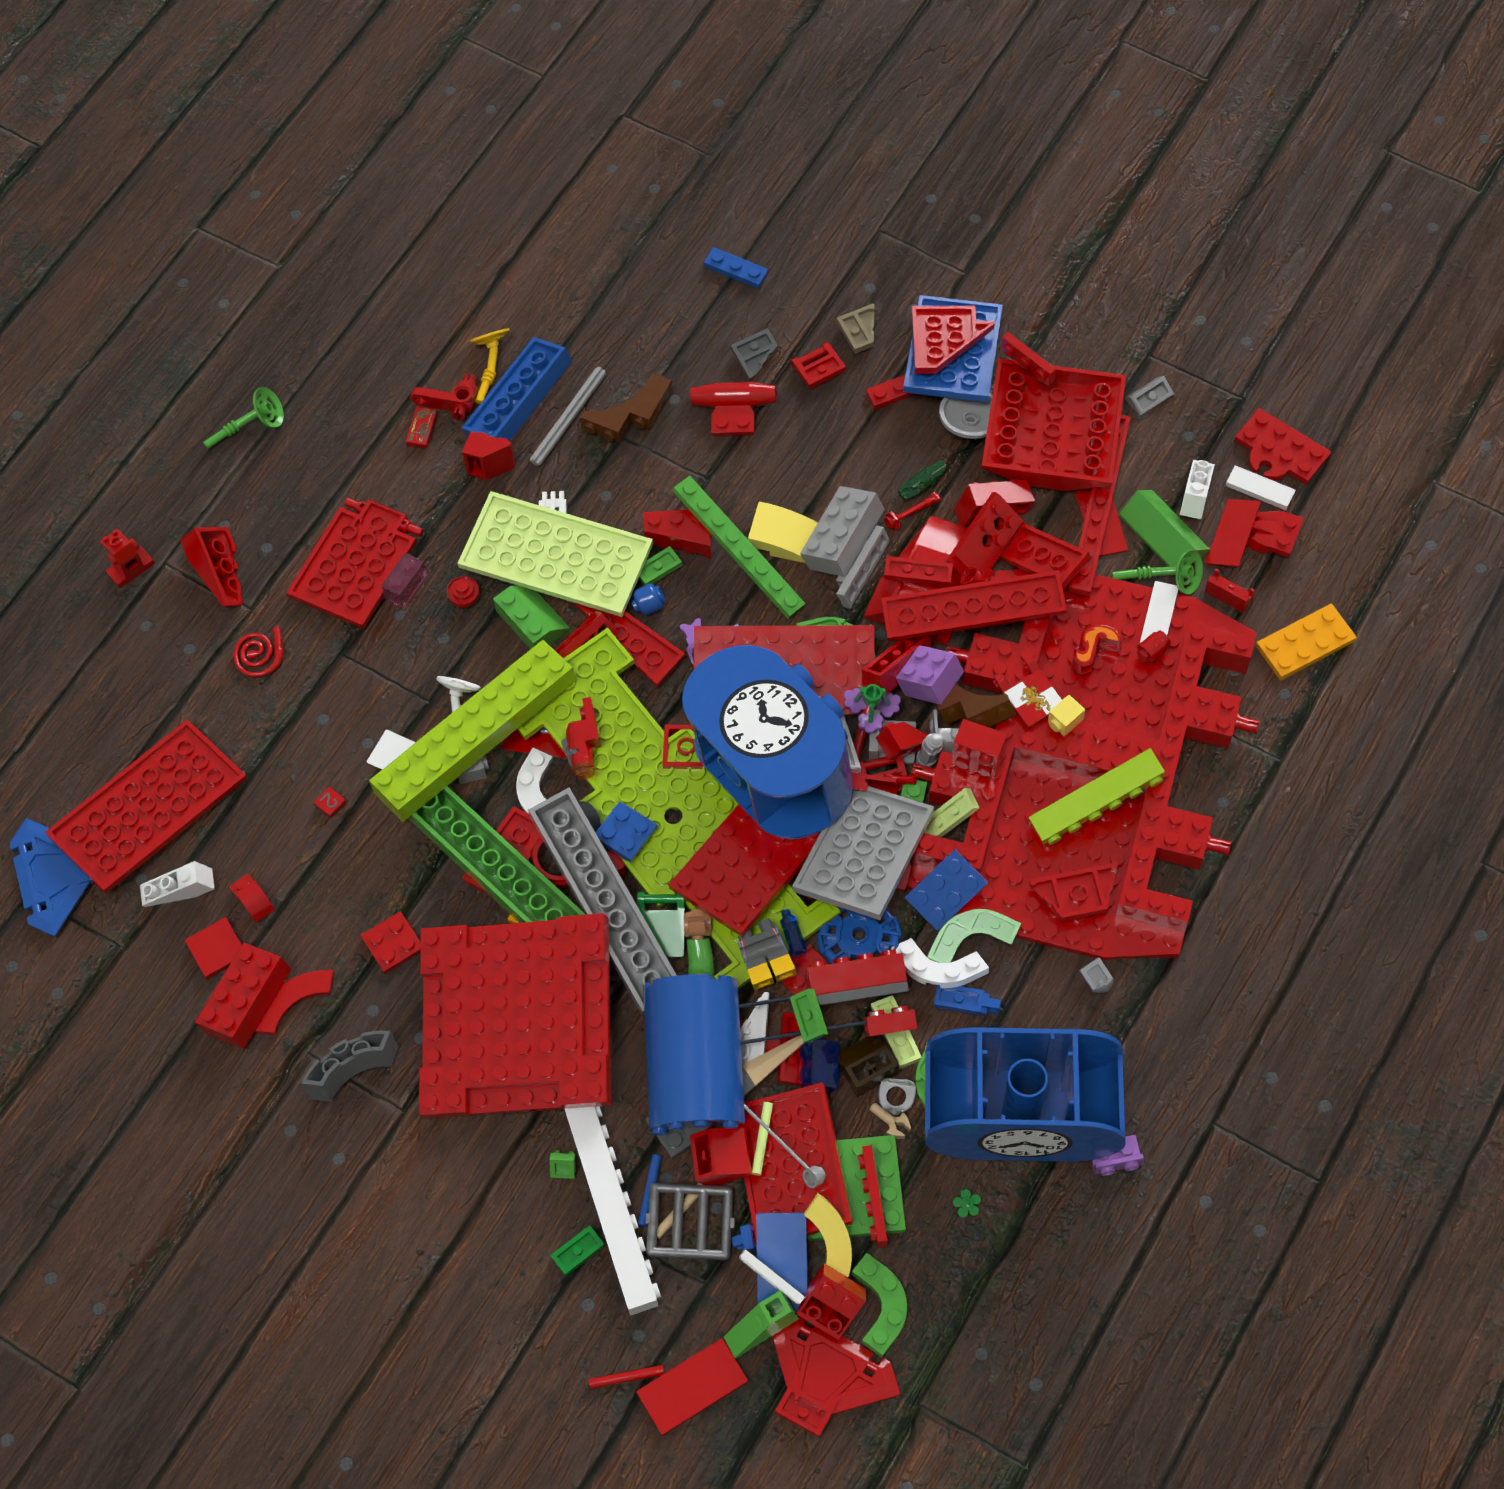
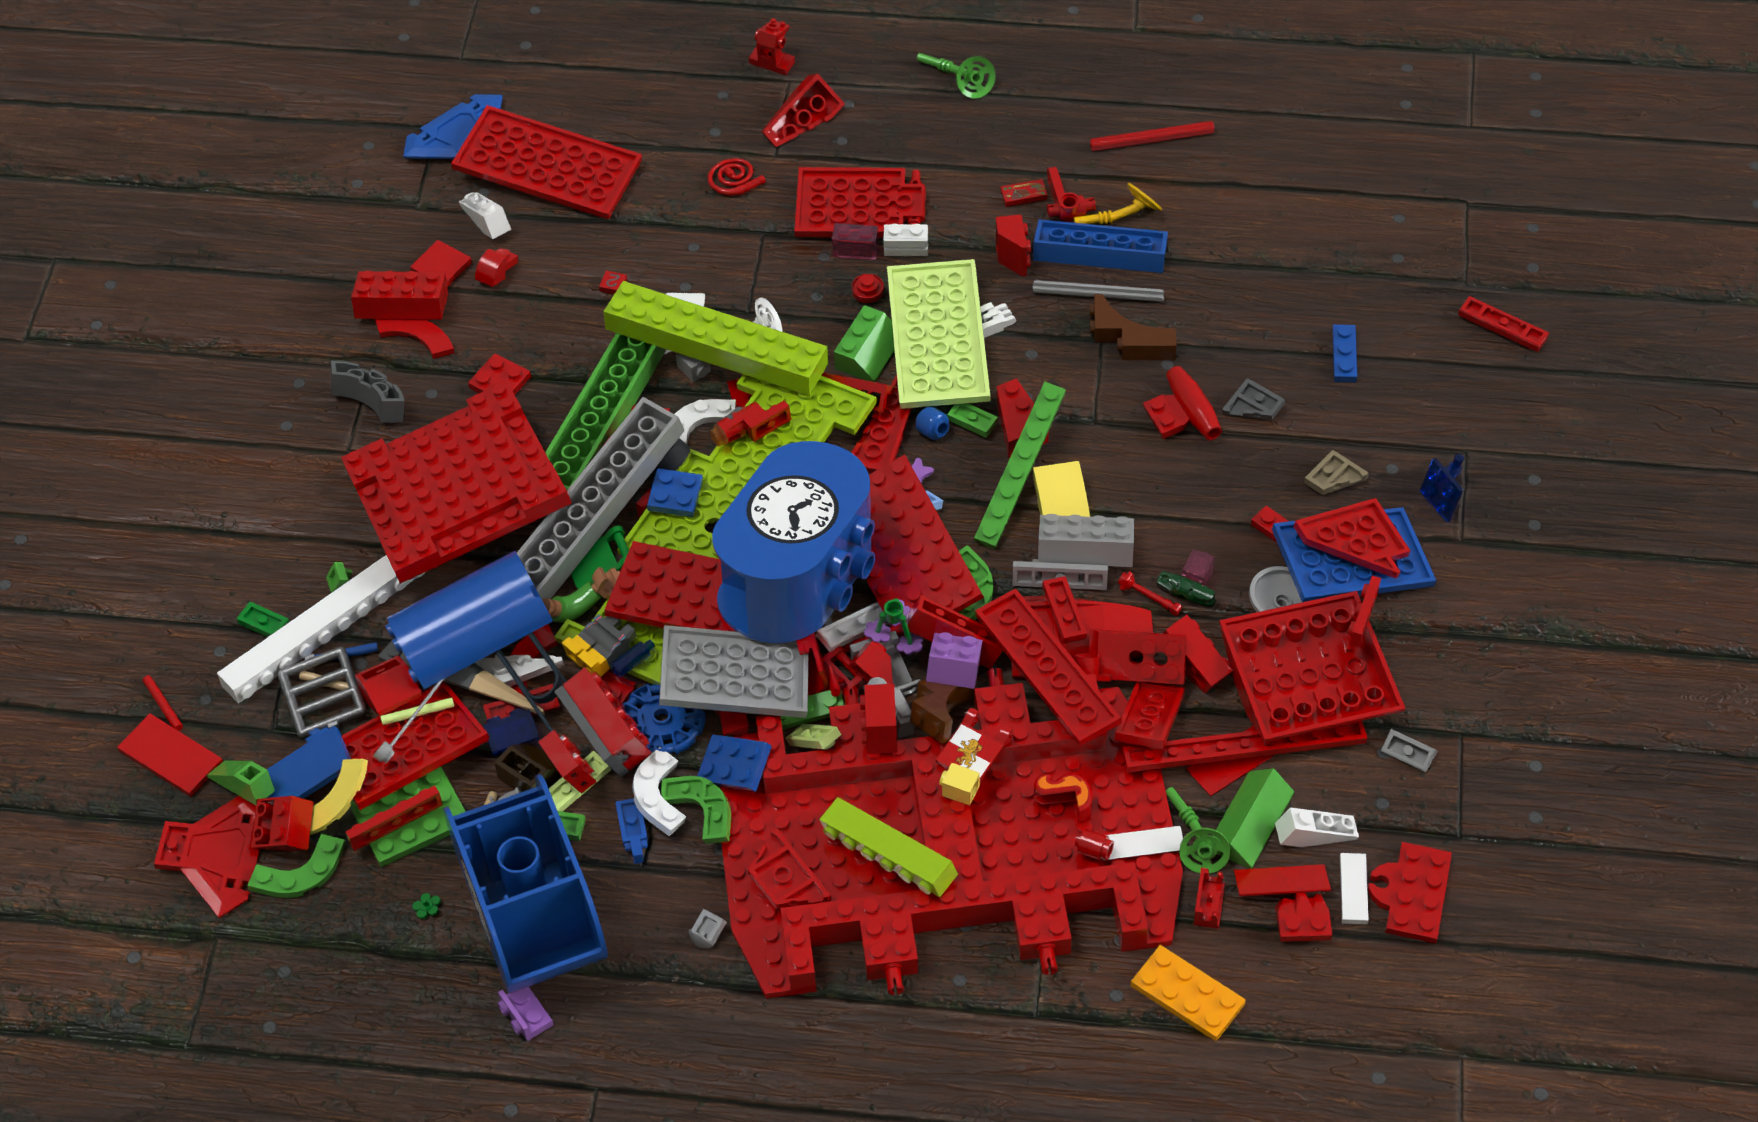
camera: 65 degrees right, 10 degrees down
(415, 304) = (1153, 135): none -> red axle
(427, 538) = (905, 240): none -> white brick
(769, 146) = (1503, 324): none -> red plate
(771, 1277) = (282, 762): white tile -> none
(808, 1015) = (540, 688): bright green plate -> none
(820, 370) = (1268, 462): red plate -> none
(907, 463) = (1199, 567): none -> clear pink brick
(919, 258) = (1442, 488): none -> clear blue plate

